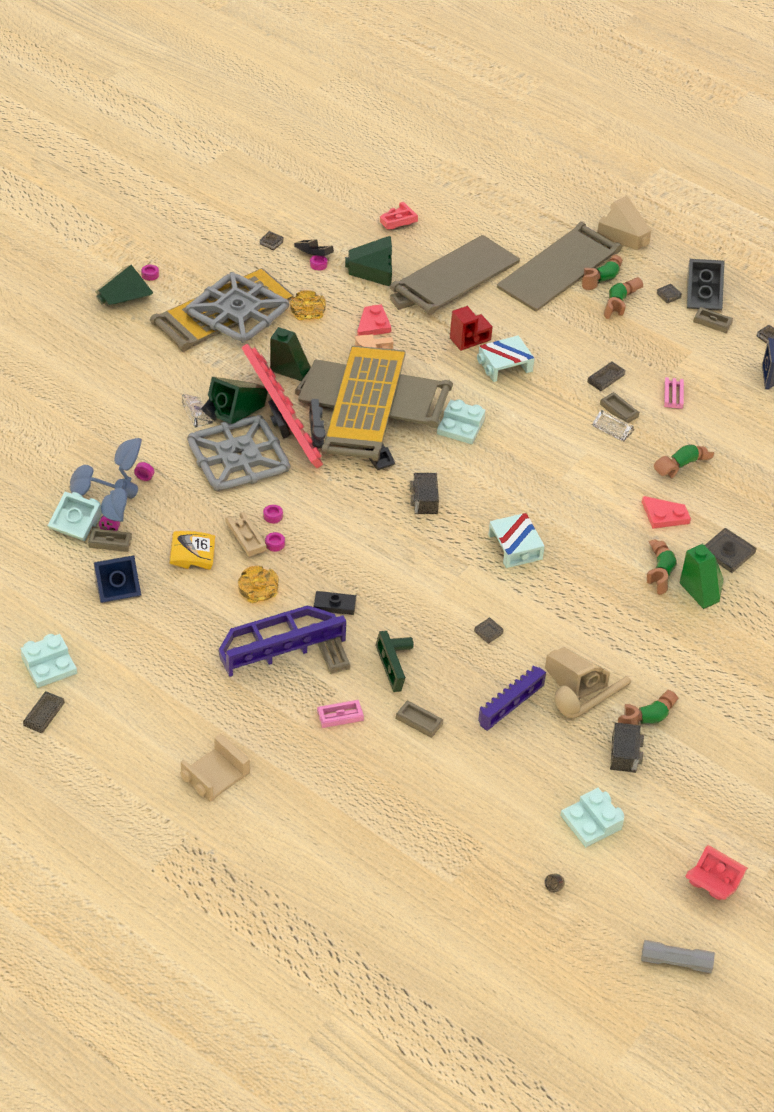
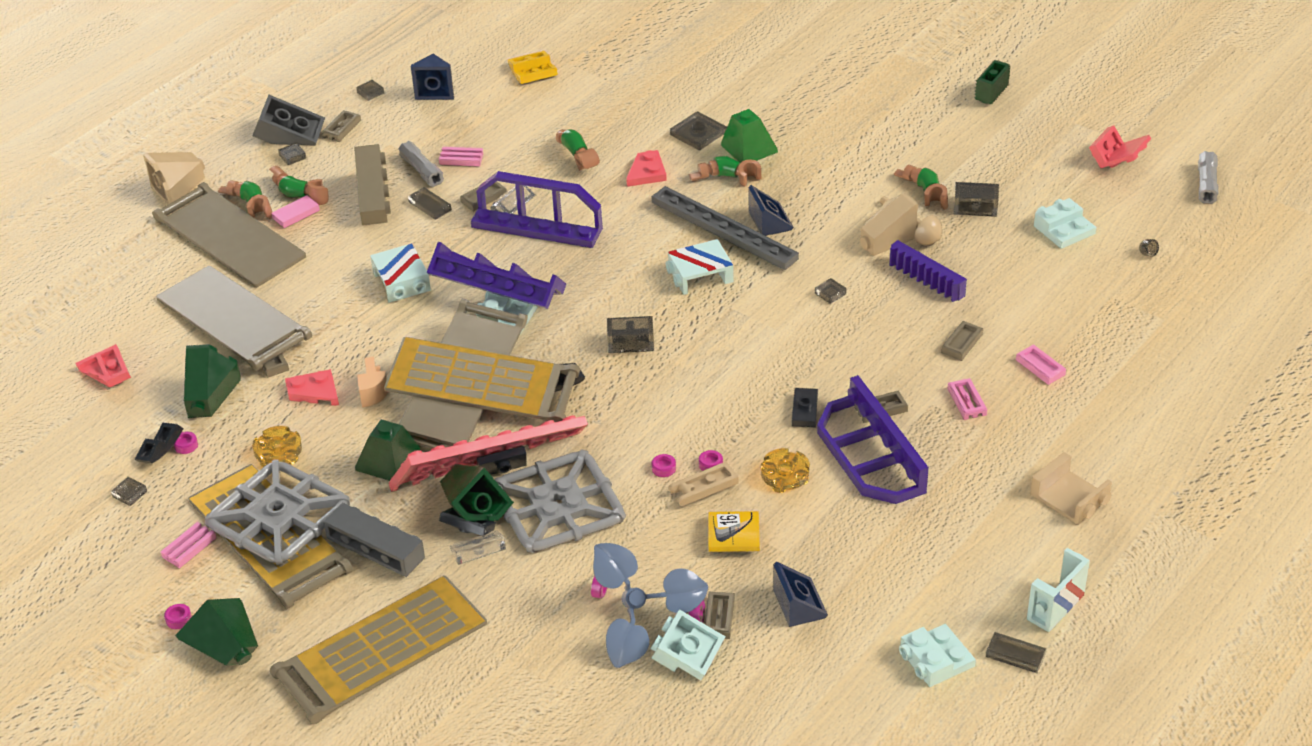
camera: 85 degrees left, 5 degrees down
(97, 748) = (1051, 604): none -> light aqua panel
(109, 367) = (380, 647): none -> flag
(201, 353) = (374, 539): none -> dark grey brick
(218, 270) = (185, 543): none -> bright pink tile
(316, 424) = (494, 426): dark grey hinge -> none
(384, 773) = (1041, 364): none -> bright pink tile
(386, 649) = (890, 356): dark green piece -> none
(468, 329) = (350, 298): red brick -> none
(475, 402) = (487, 277): none -> dark purple plate
(574, 560) = (725, 228): none -> dark grey plate
(579, 437) = (535, 227): none -> dark purple plate
(589, 299) = (295, 211): none -> bright pink tile
(596, 588) = (767, 213): none -> dark blue slope
(617, 334) = (371, 184): none -> dark tan wedge
(646, 371) = (429, 172): none -> light grey axle

